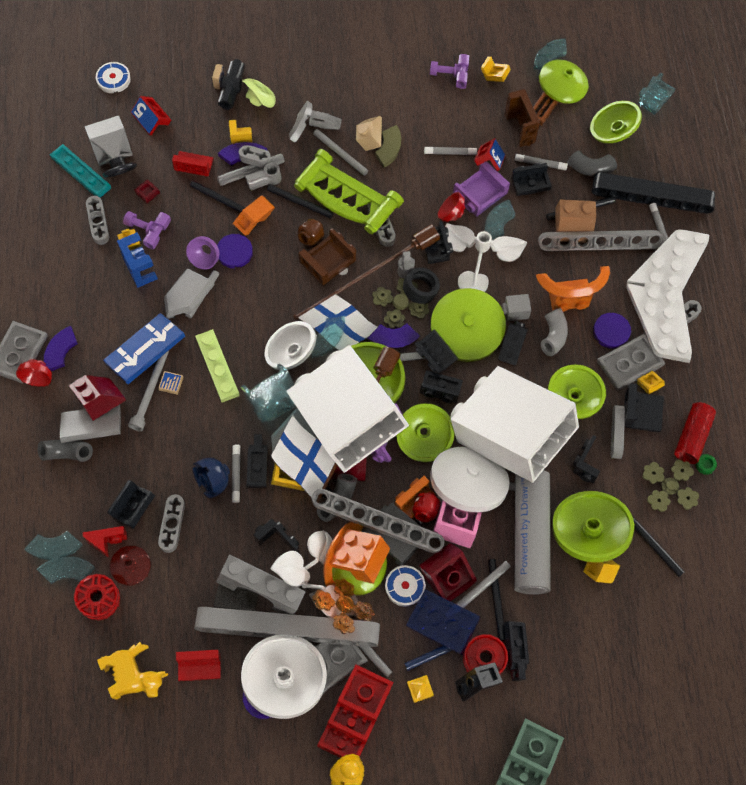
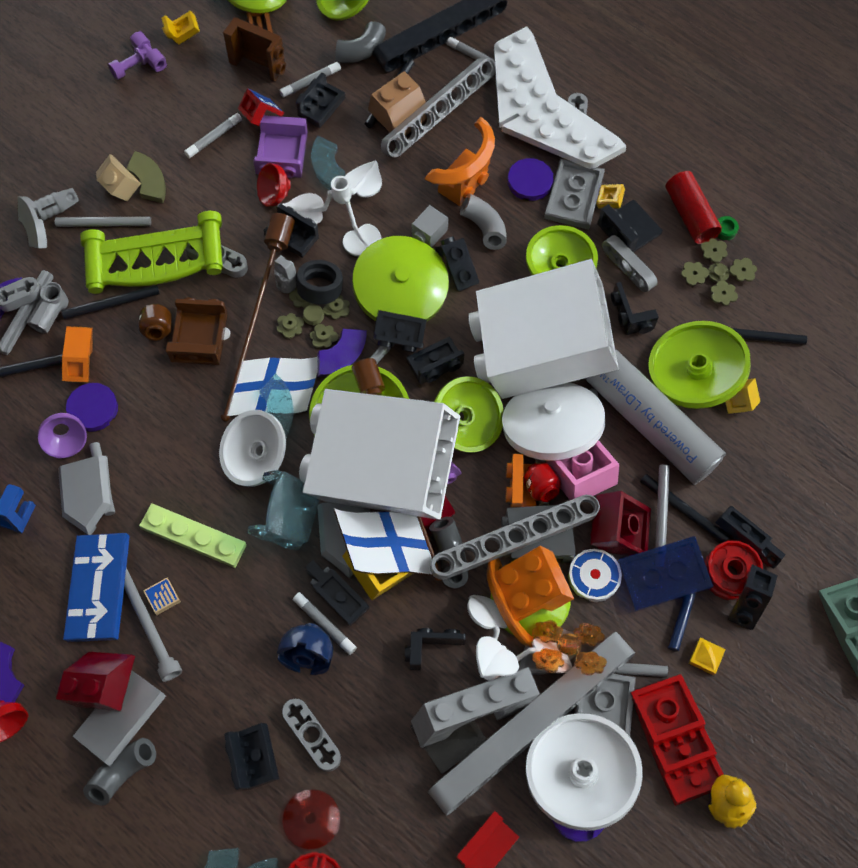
camera: 45 degrees left, 0 degrees up
(100, 538) = (253, 825): red slope -> none

